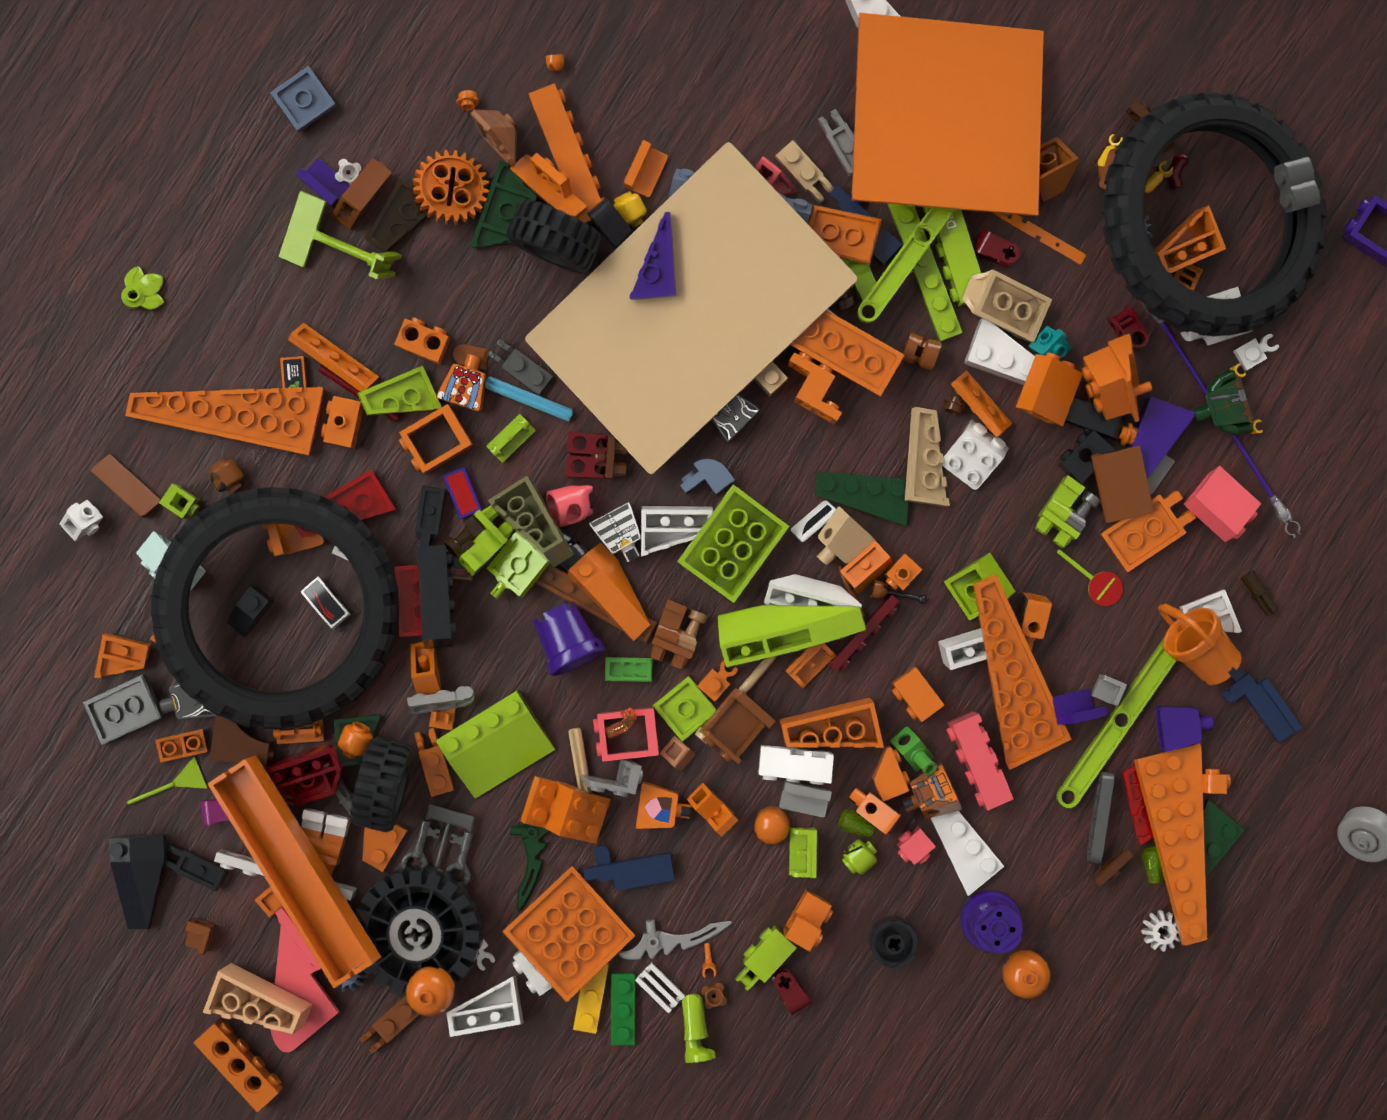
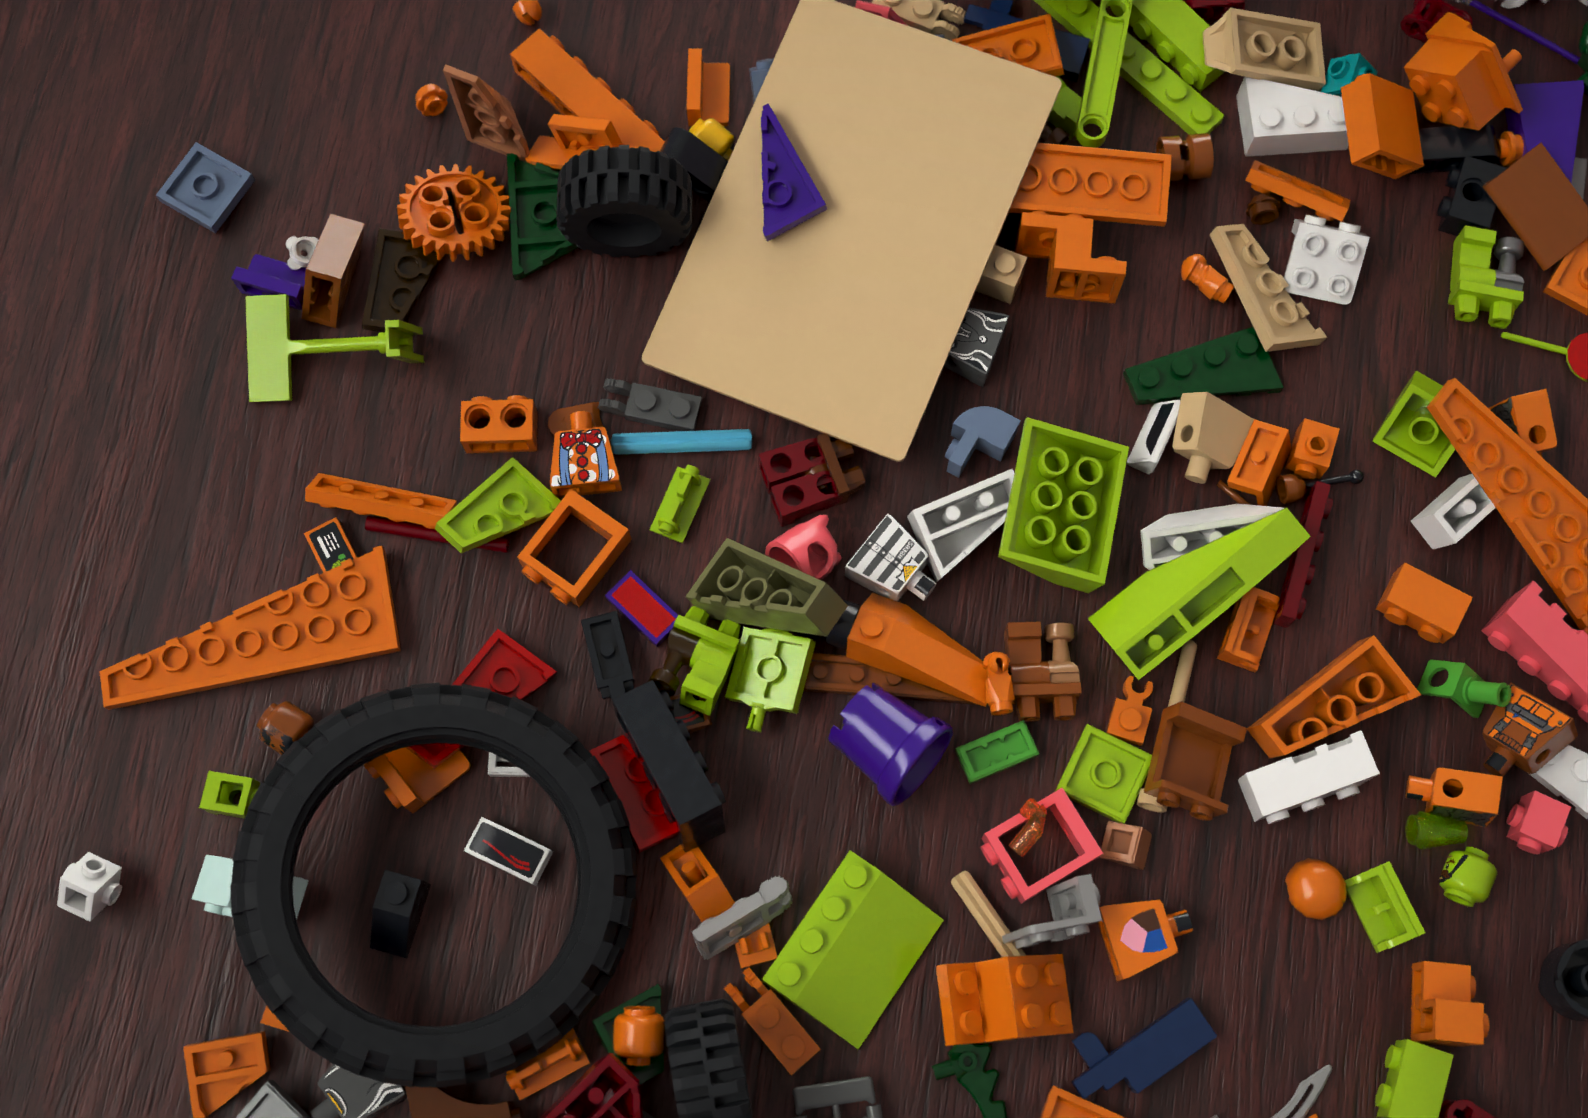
camera: 20 degrees left, 15 degrees down
(126, 486) = (142, 809): dark orange slope -> none
(145, 287) = (69, 520): lime plate -> none
(342, 422) = (429, 581): orange brick -> none
(644, 634) = (998, 684): none -> orange arm
(712, 809) = (1220, 901): orange brick -> none
(804, 798) = (1342, 827): light grey panel -> none
(888, 776) = (1444, 736): orange slope -> none
(894, 434) = (1207, 279): none -> orange arm

